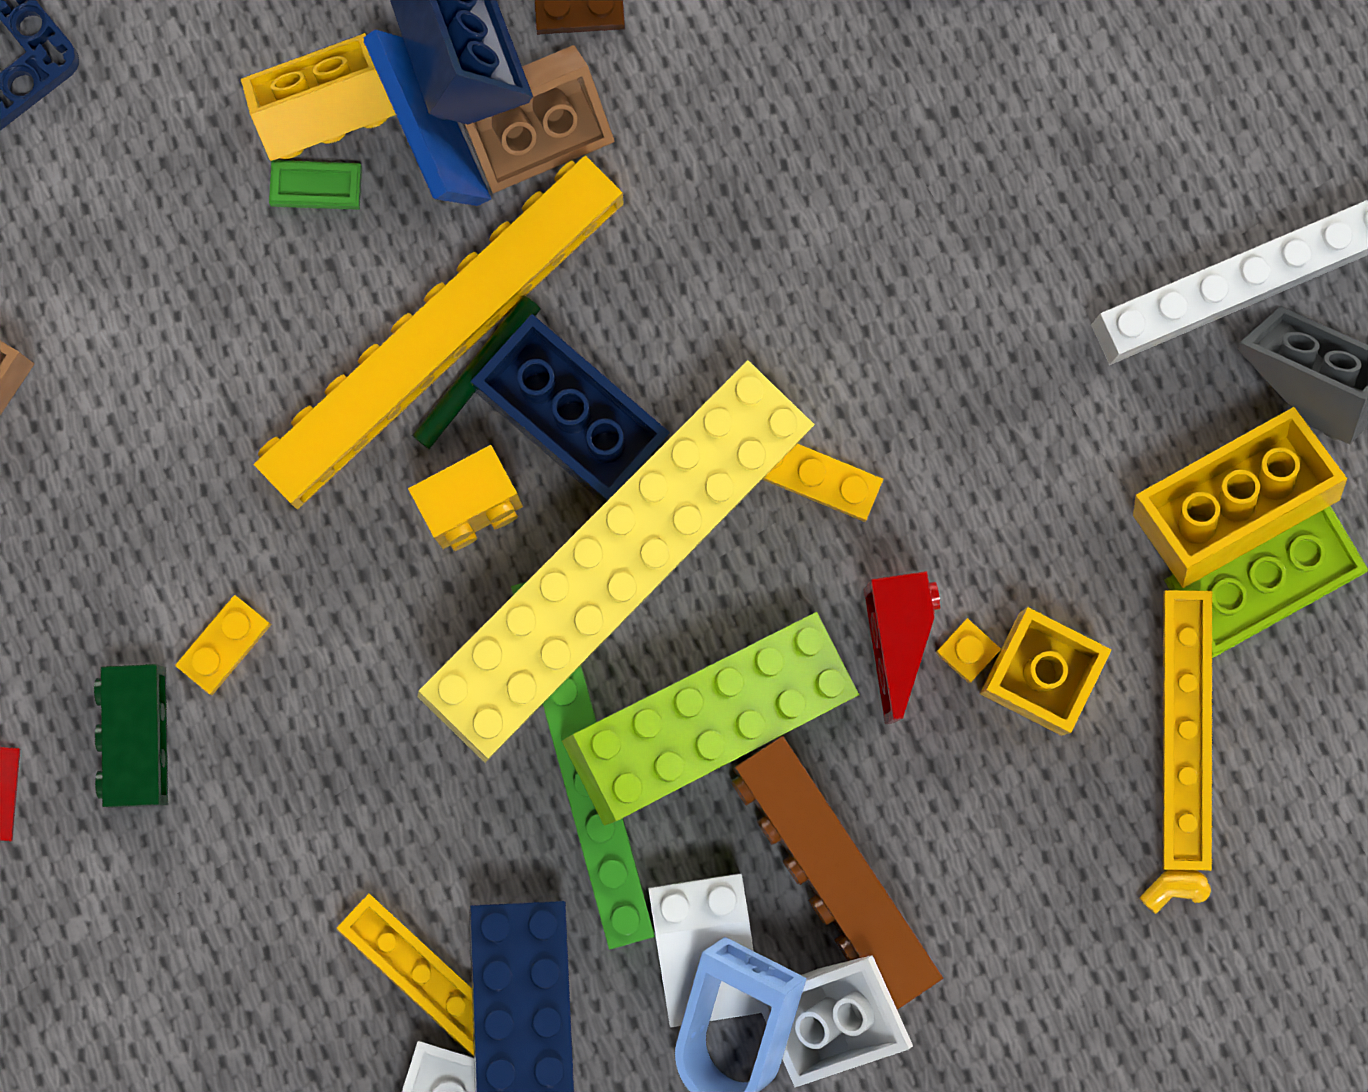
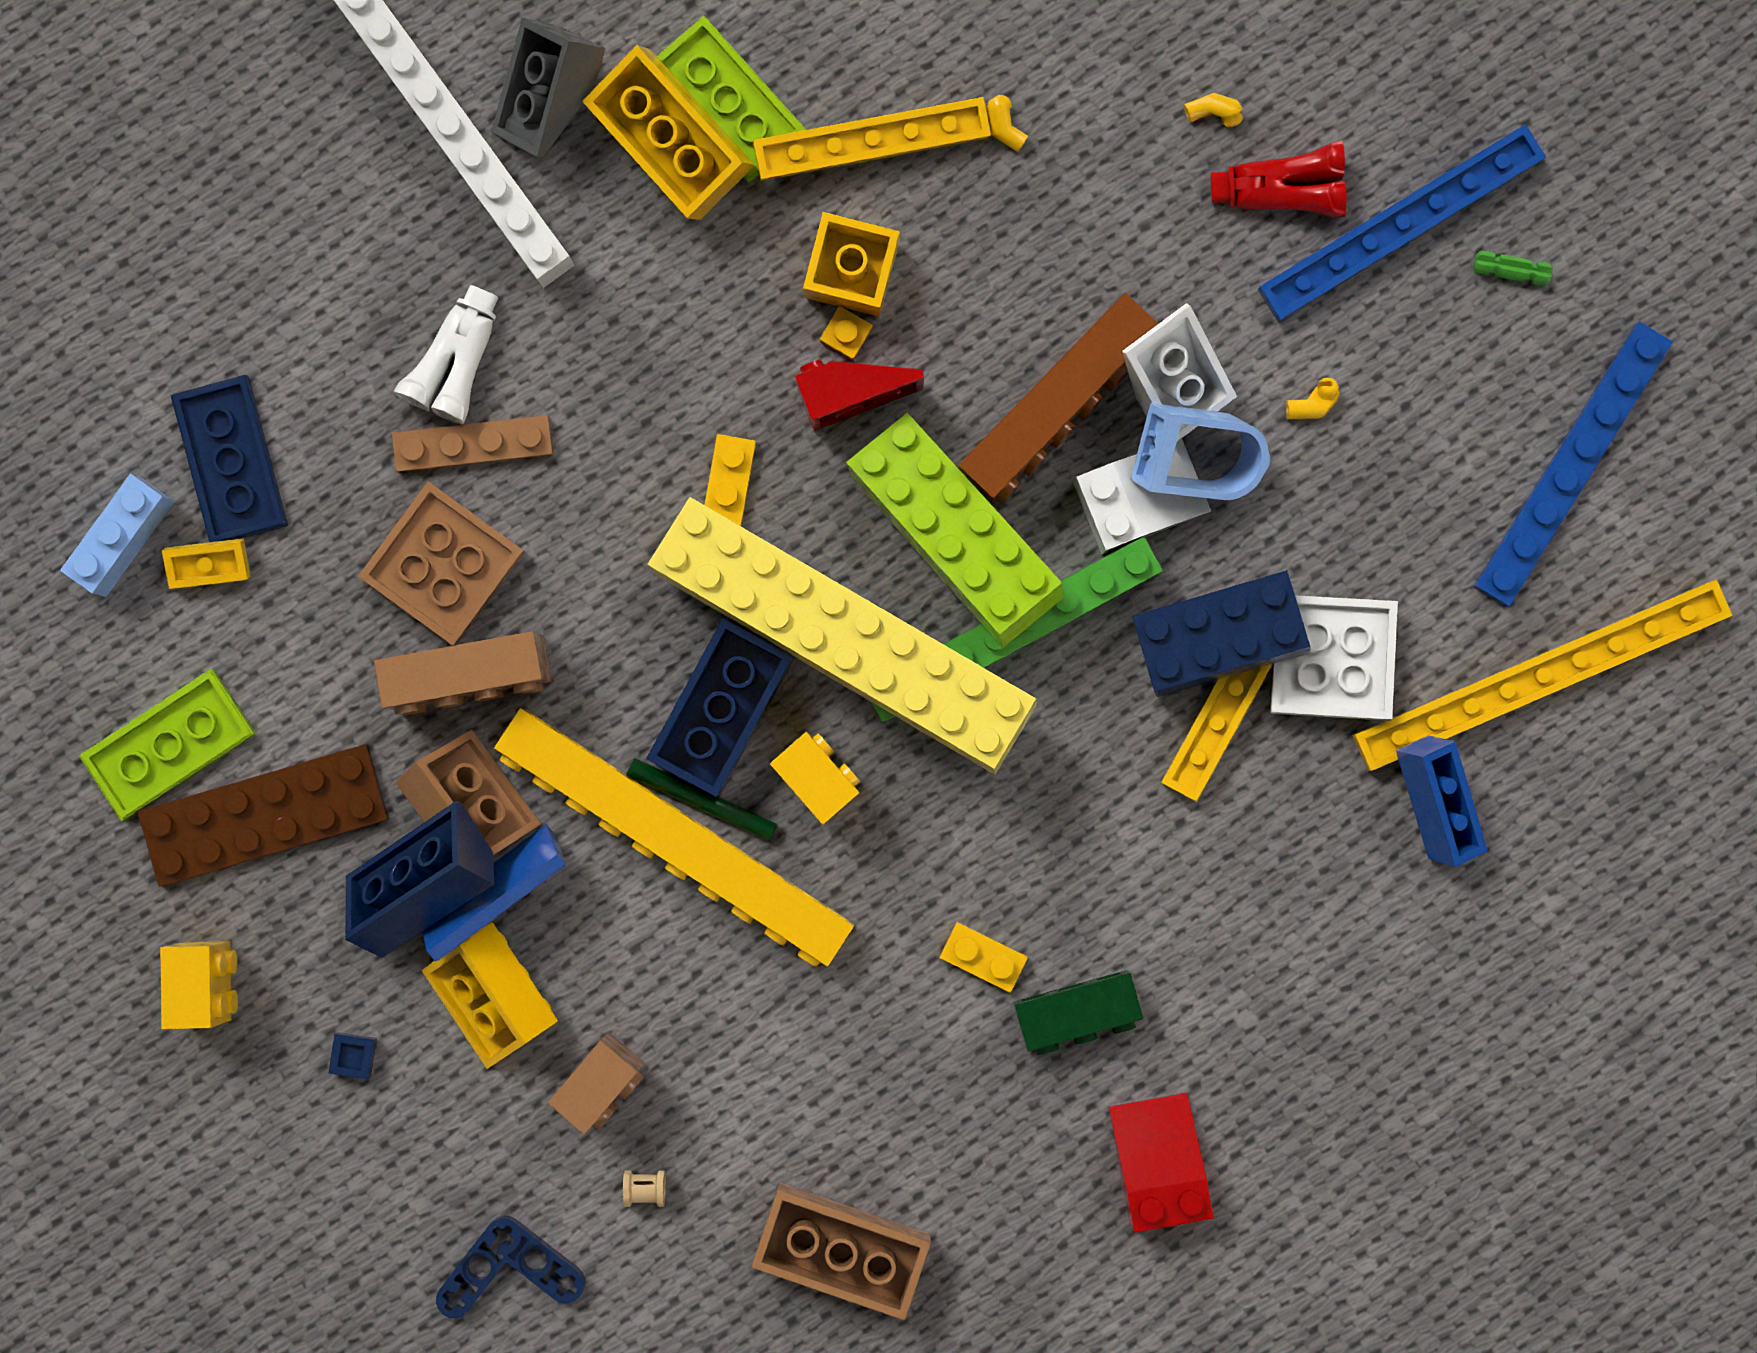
camera: 100 degrees left, 5 degrees up
(65, 215) = (644, 1188): none -> tan bush
(187, 186) = (591, 1089): none -> medium nougat brick
(315, 184) = (568, 978): bright green tile -> none
(676, 132) = (463, 671): none -> medium nougat brick
(804, 147) = (441, 564): none -> medium nougat plate
(930, 210) = (472, 444): none -> medium nougat plate
(1052, 222) = (460, 336): none -> white piece

